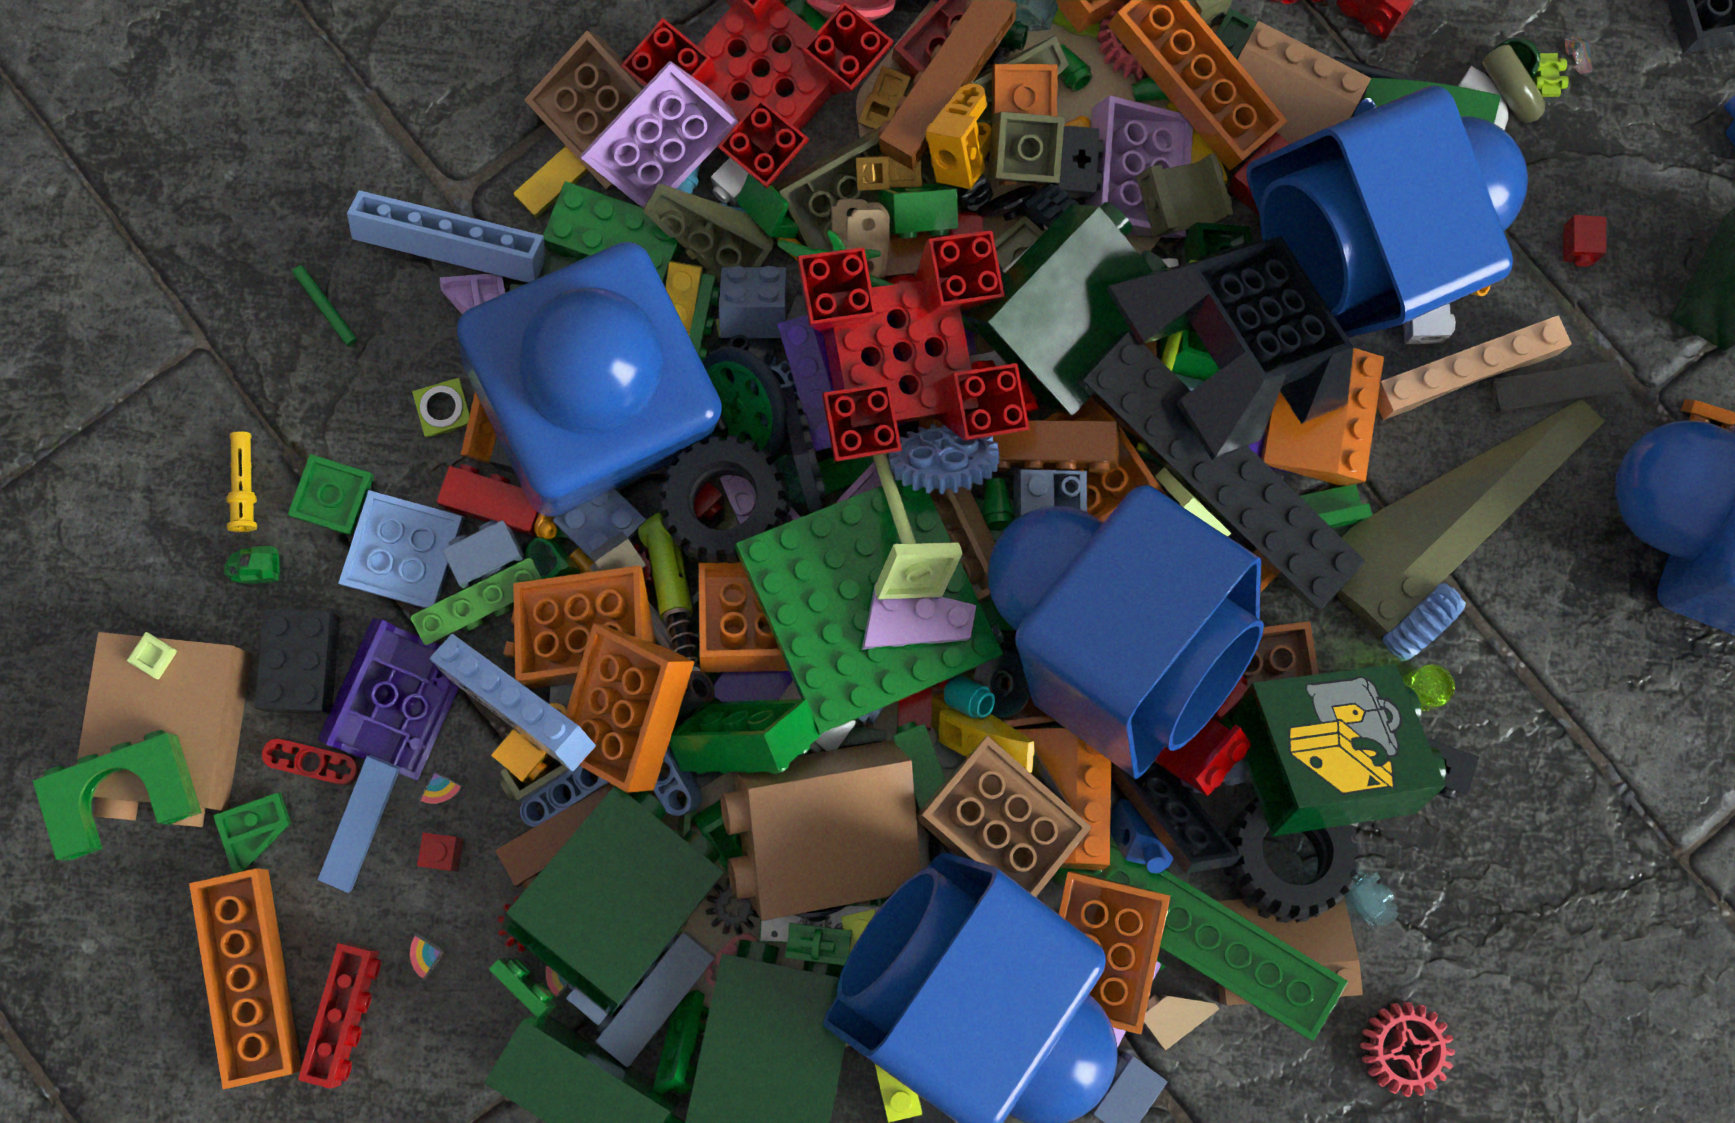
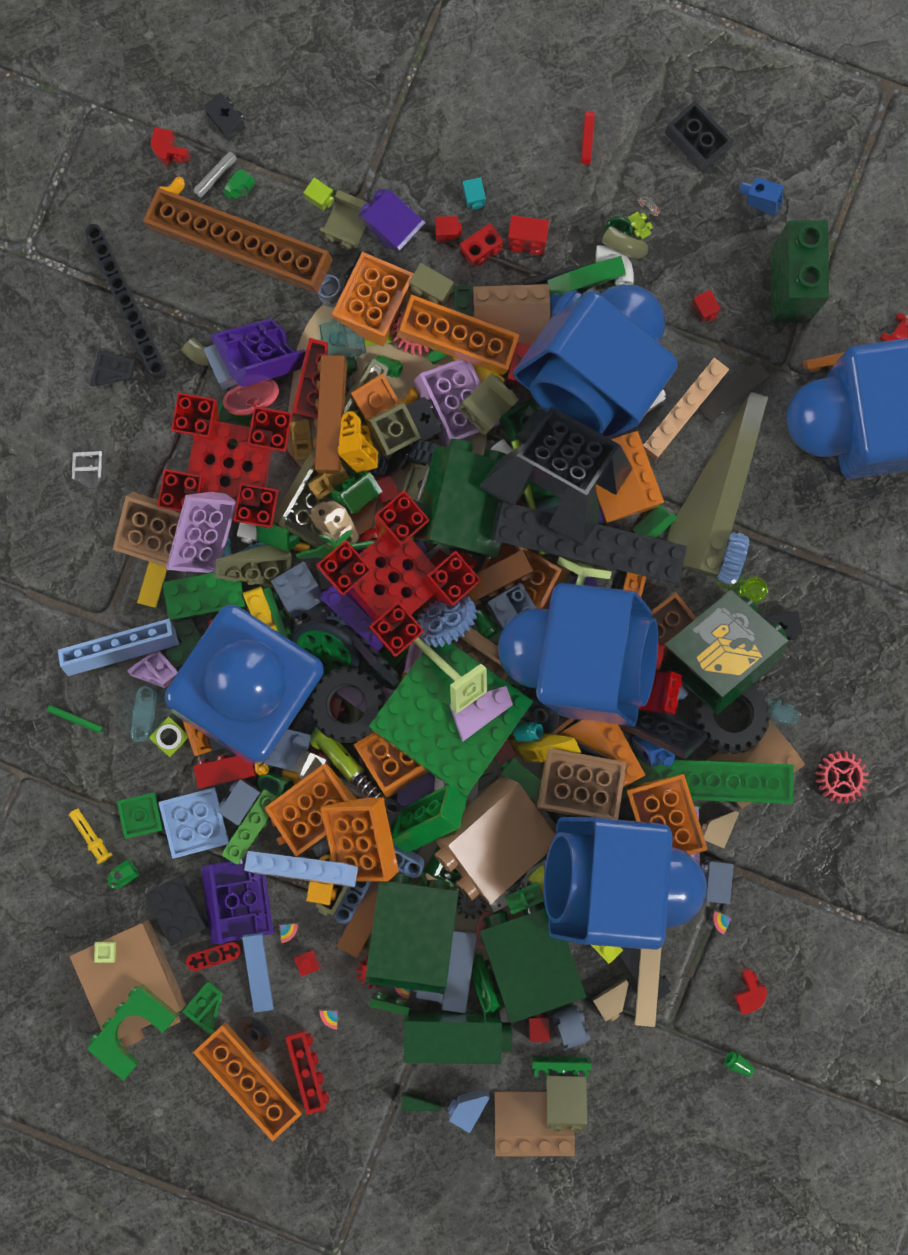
camera: 25 degrees left, 5 degrees up
(297, 911) = (254, 1033): none -> black dish
(424, 353) = (143, 714): none -> clear light blue piece

